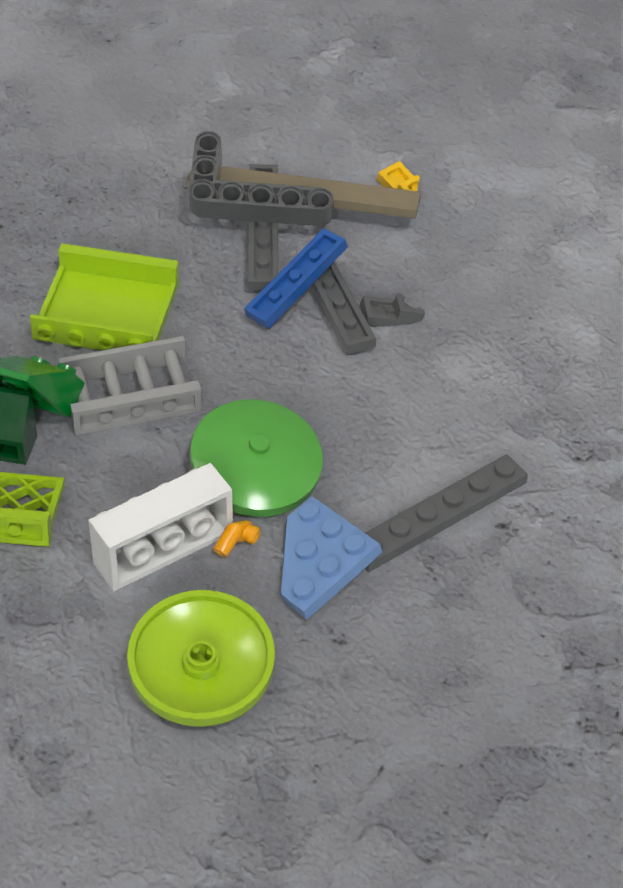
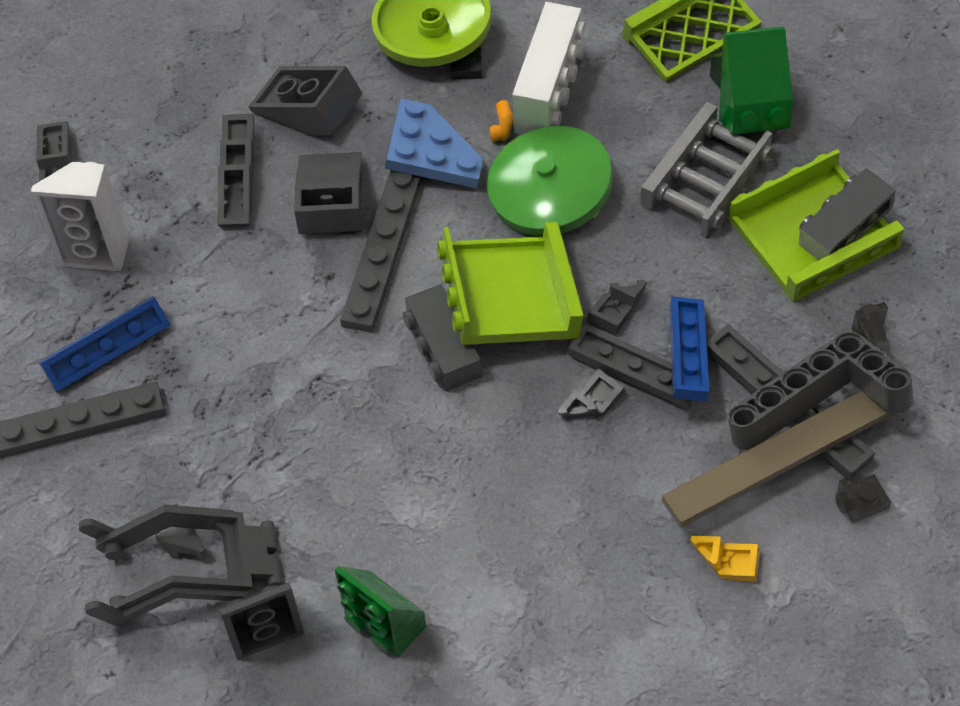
camera: 145 degrees right, 10 degrees up
(84, 279) = (847, 214): none -> dark grey brick
(159, 225) = (869, 323): none -> clear smoke bracket
(287, 159) = (861, 498): none -> clear smoke bracket
(306, 354) = (616, 306): none -> dark grey slope
(377, 392) = (510, 288): none -> lime panel
(388, 679) = (308, 98): none -> dark grey slope
(444, 573) = (329, 193): none -> dark grey slope
(461, 407) = (432, 322): none -> dark grey brick
(509, 661) = (236, 170): none -> dark grey slope

